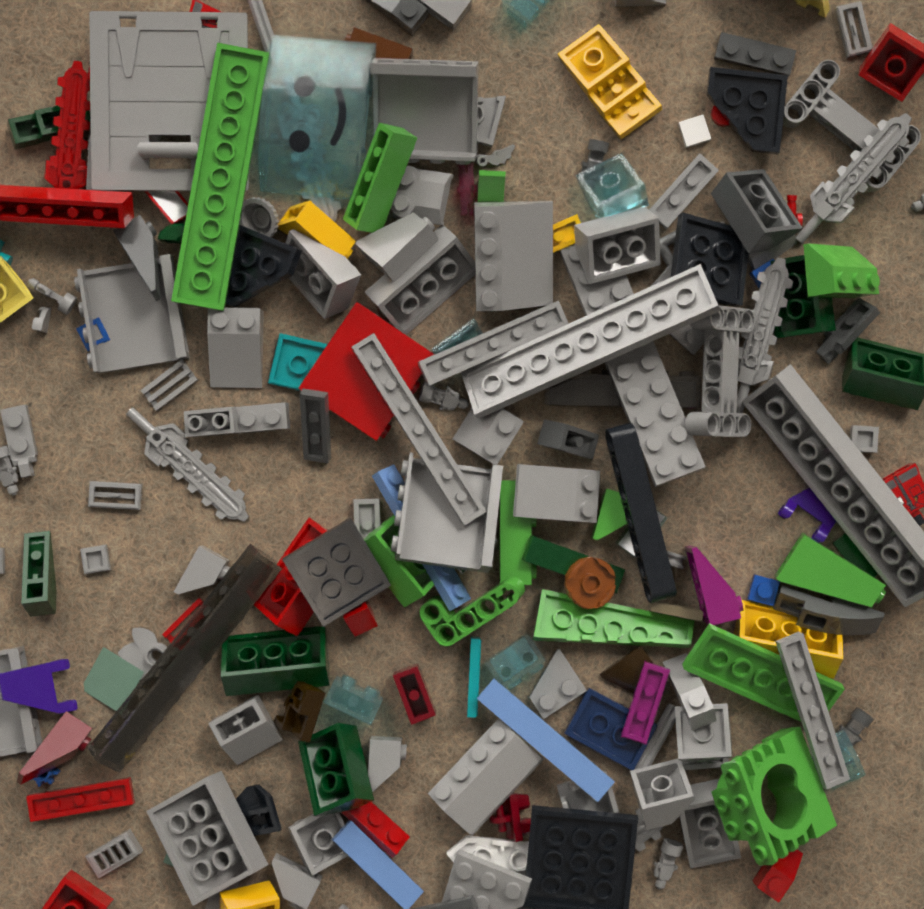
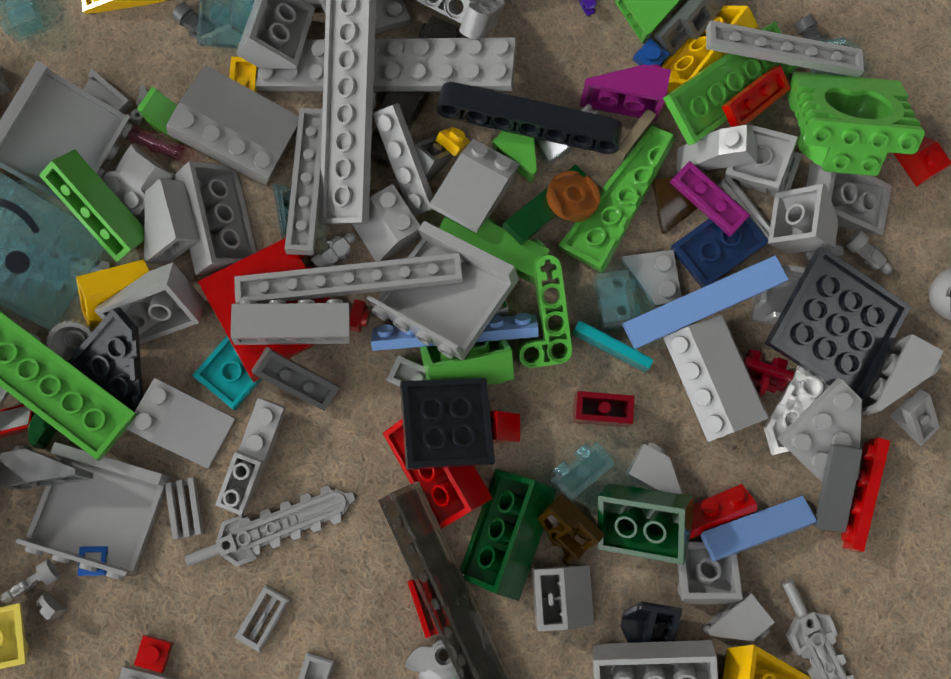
camera: 65 degrees left, 10 degrees down
(46, 422) = (153, 653): none -> red plate
(203, 570) = (382, 563): light grey slope -> none
(357, 403) = (290, 323): none -> light grey brick
(396, 449) = (359, 315): none -> red plate
(550, 420) = (404, 158): none -> light grey plate
(593, 452) = (453, 140): none -> yellow plate
(756, 704) = (756, 97): none -> red plate

